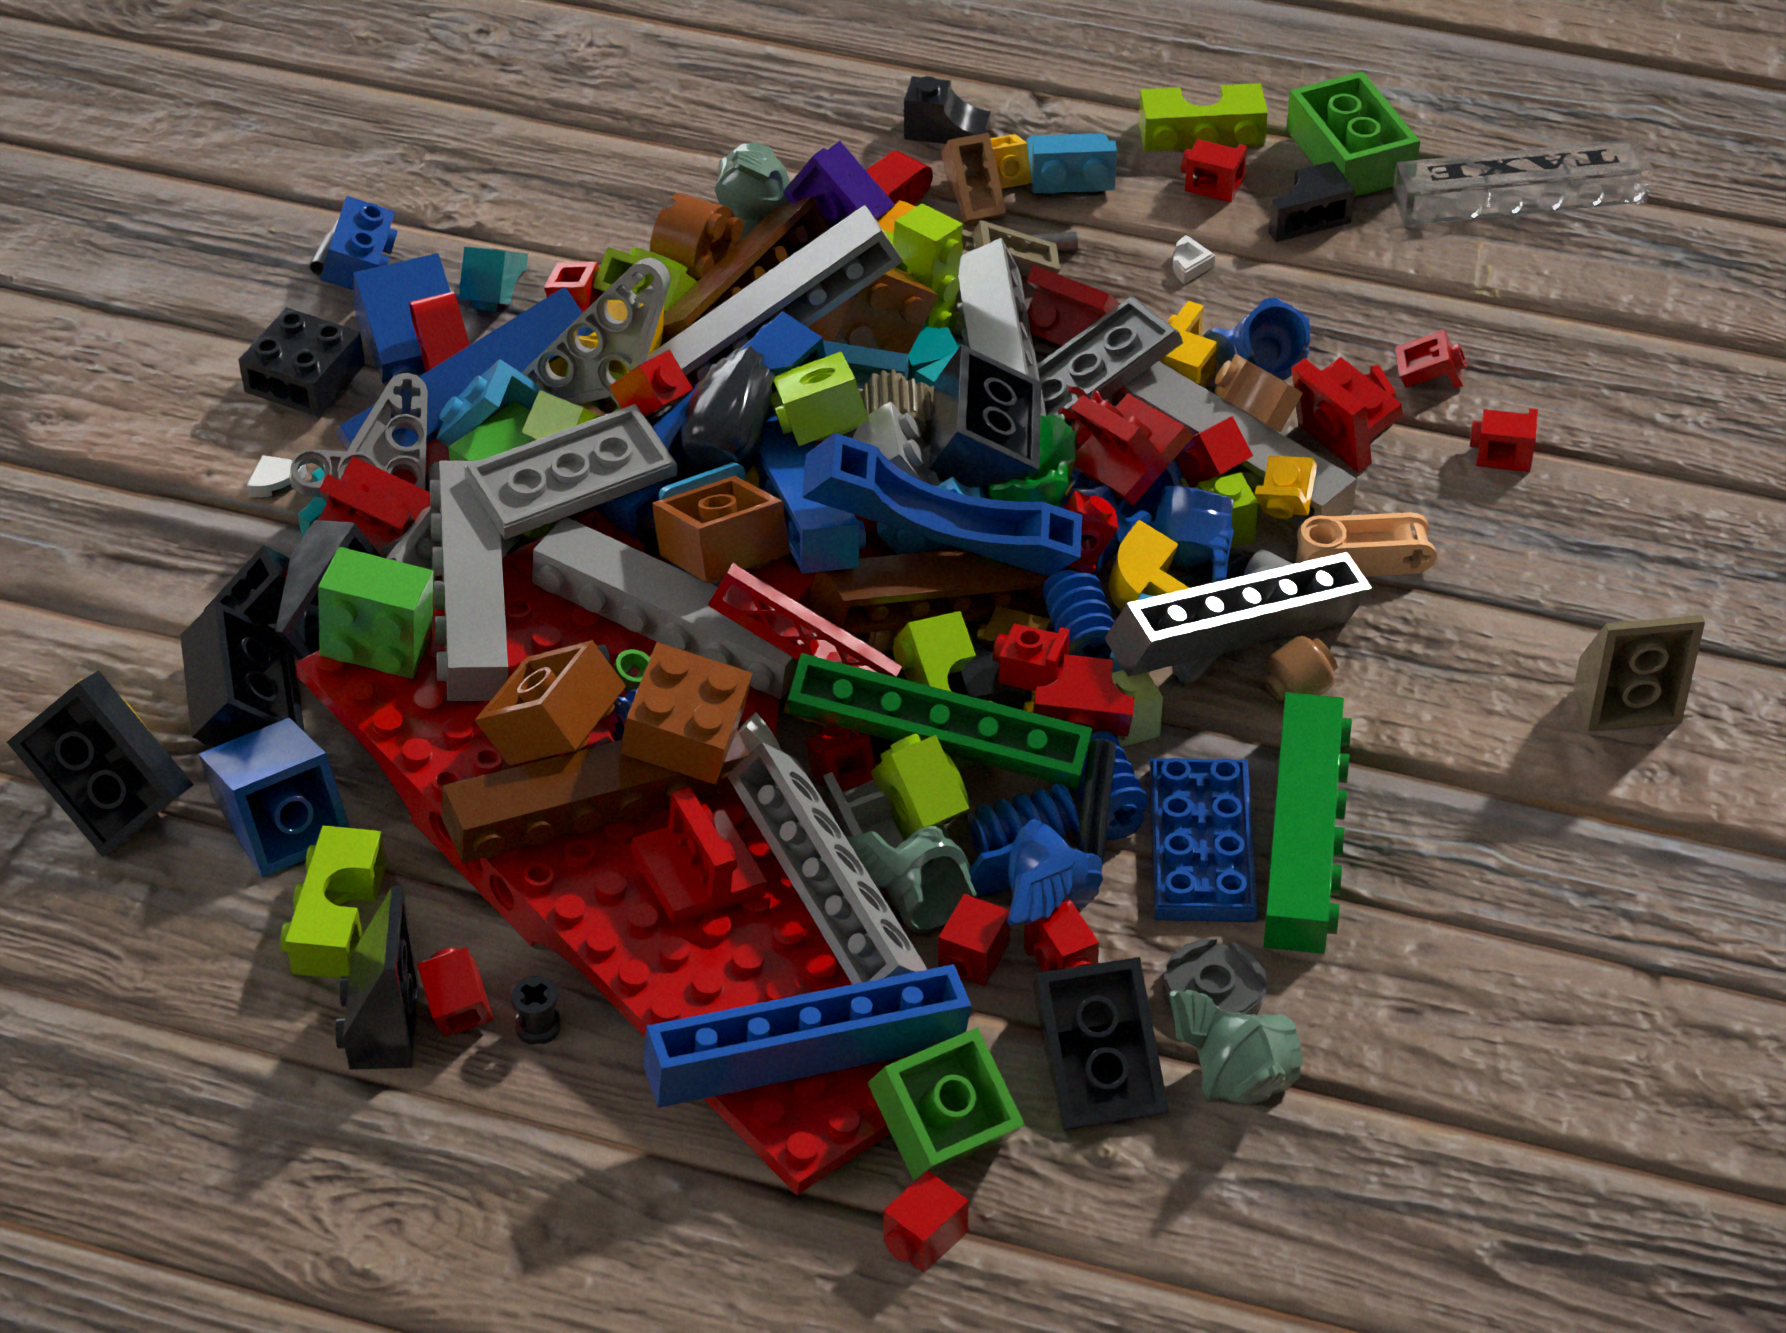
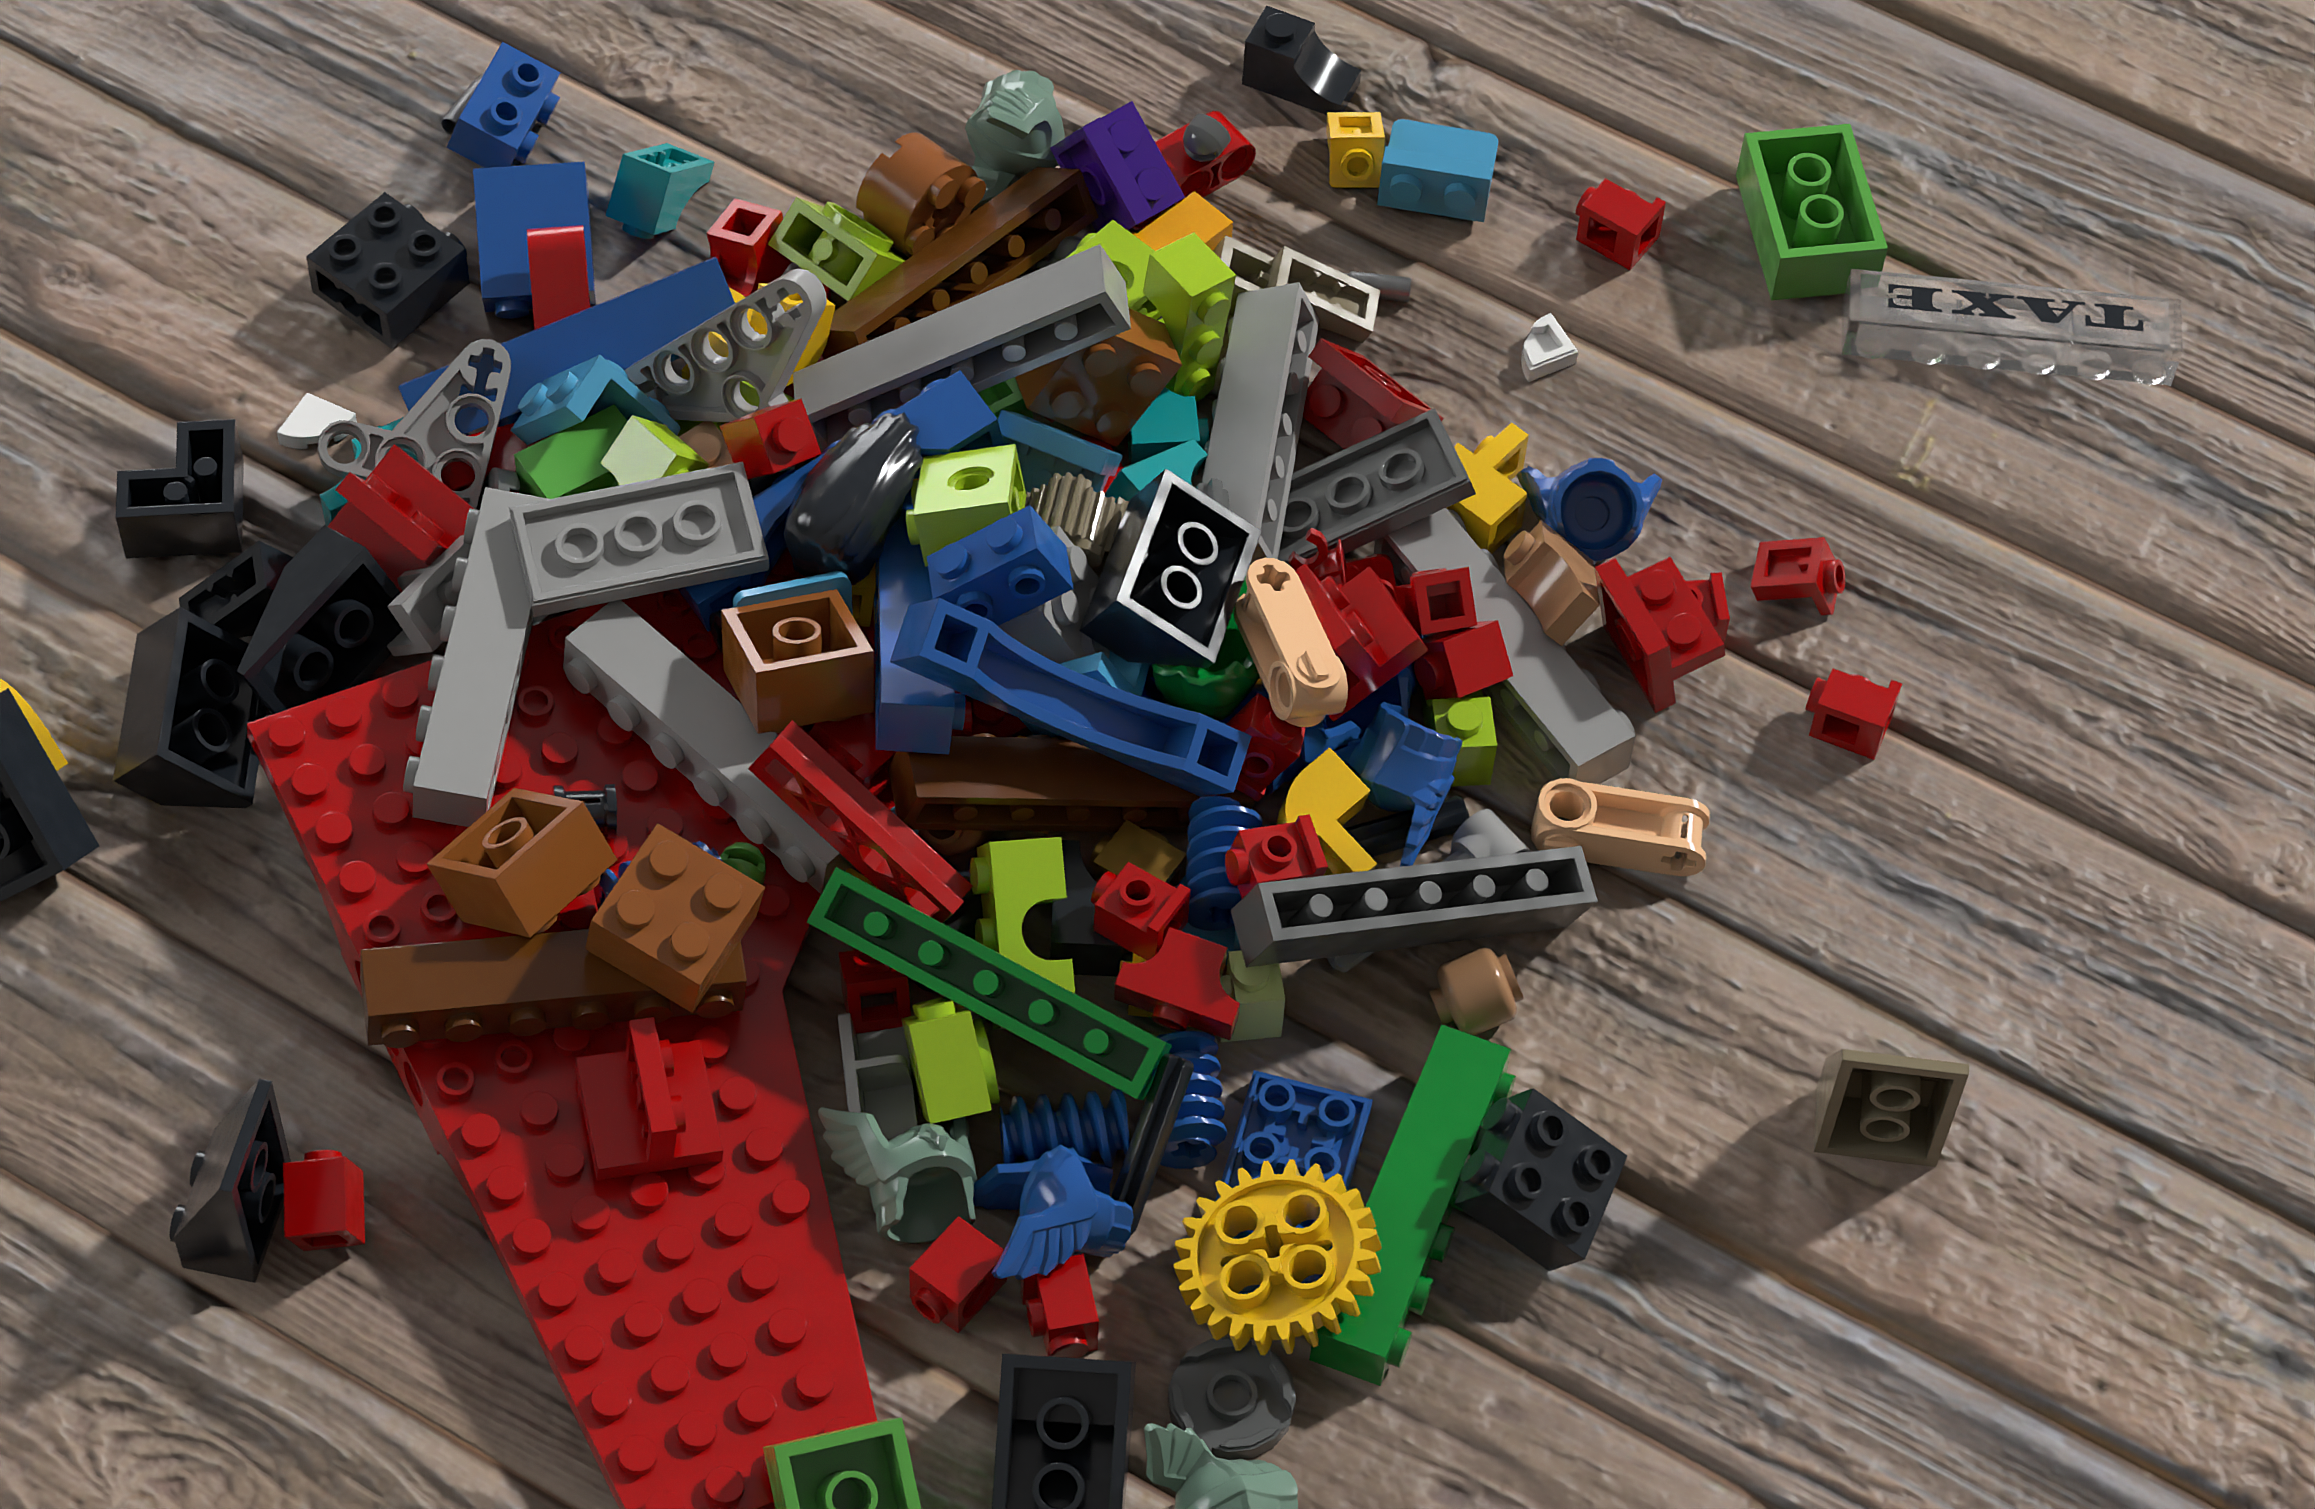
camera: 10 degrees right, 10 degrees up
(195, 541) = (188, 506): none -> black brick
(274, 793) = (190, 884): blue slope -> none
(339, 869) = (237, 1001): lime arch -> none
(375, 612) = (346, 691): bright green brick -> none
(535, 1004) = (413, 1247): black bush -> none
(626, 662) = (636, 815): bright green hinge -> none
(756, 731) = (772, 955): white tile -> none
(803, 1035) = (702, 1375): blue brick -> none
(823, 867) = (795, 1167): light grey brick -> none
(866, 415) = (1002, 568): none -> blue brick
(897, 163) = (1205, 138): none -> dark grey hinge
(974, 177) = (1304, 174): medium nougat arch -> none
(1091, 450) = (1289, 645): none -> light nougat piece
(1117, 589) = (1275, 854): none -> red brick
(1175, 124) = (1591, 142): lime arch -> none
(1189, 406) = (1438, 600): none -> red brick
(1222, 868) = (1281, 1304): none -> yellow gear
(1287, 486) = (1540, 731): yellow bracket -> none
(1316, 203) = (1732, 302): black arch -> none
(1399, 778) = (1540, 1179): none -> black brick

